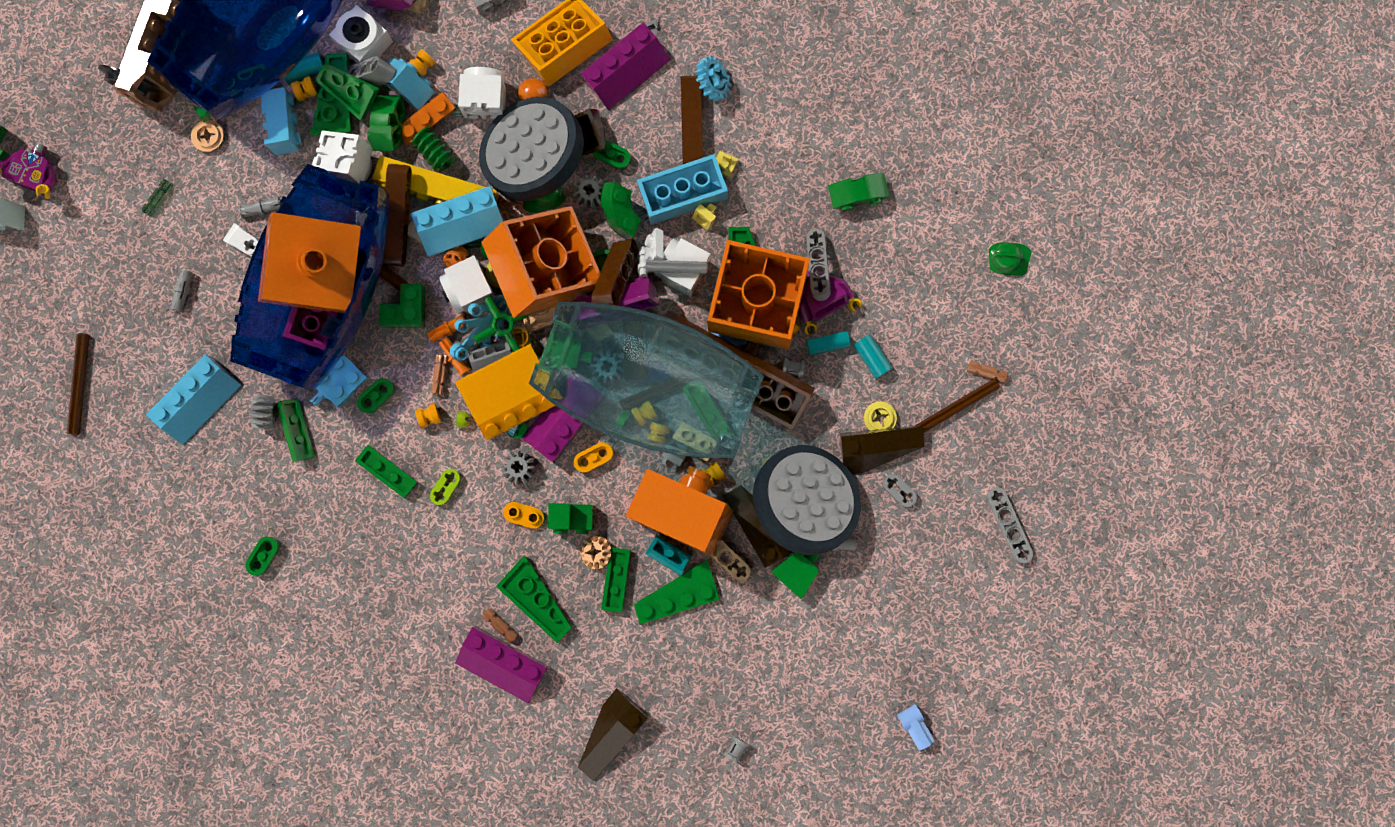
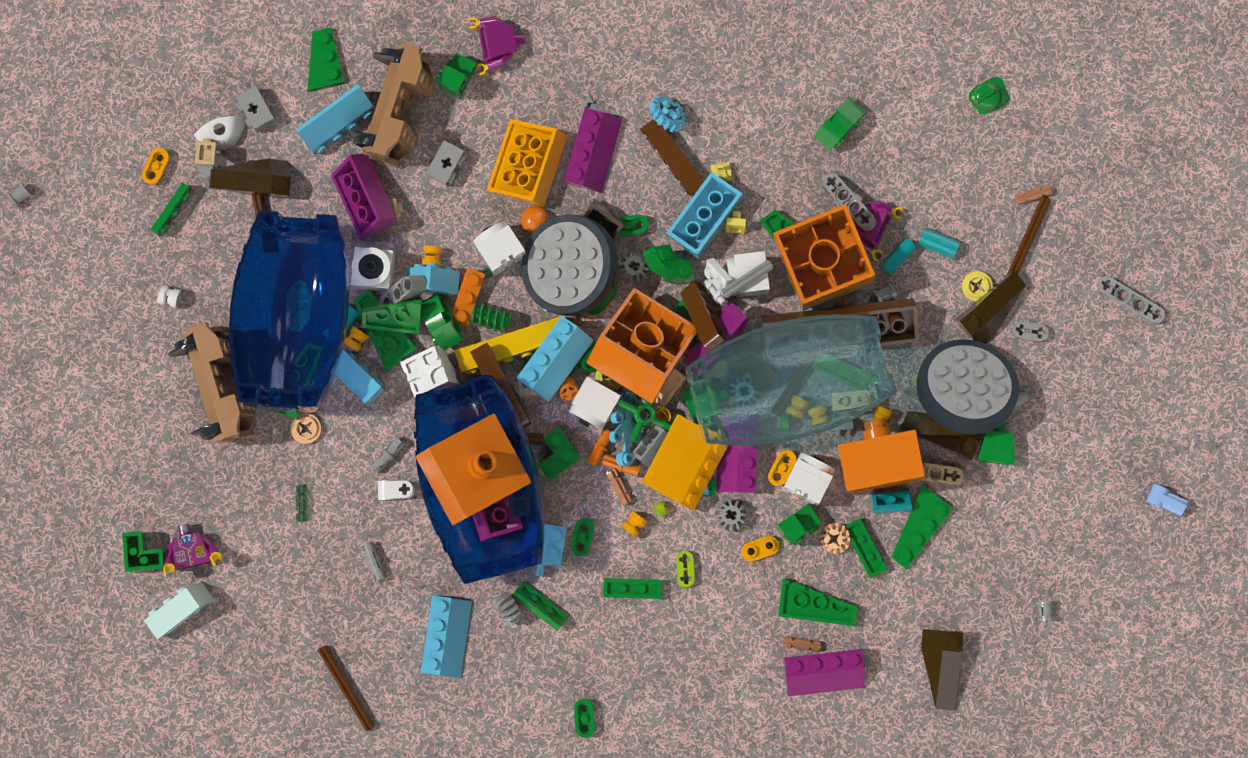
camera: 30 degrees left, 0 degrees up
(608, 483) = (809, 478): none -> white piece

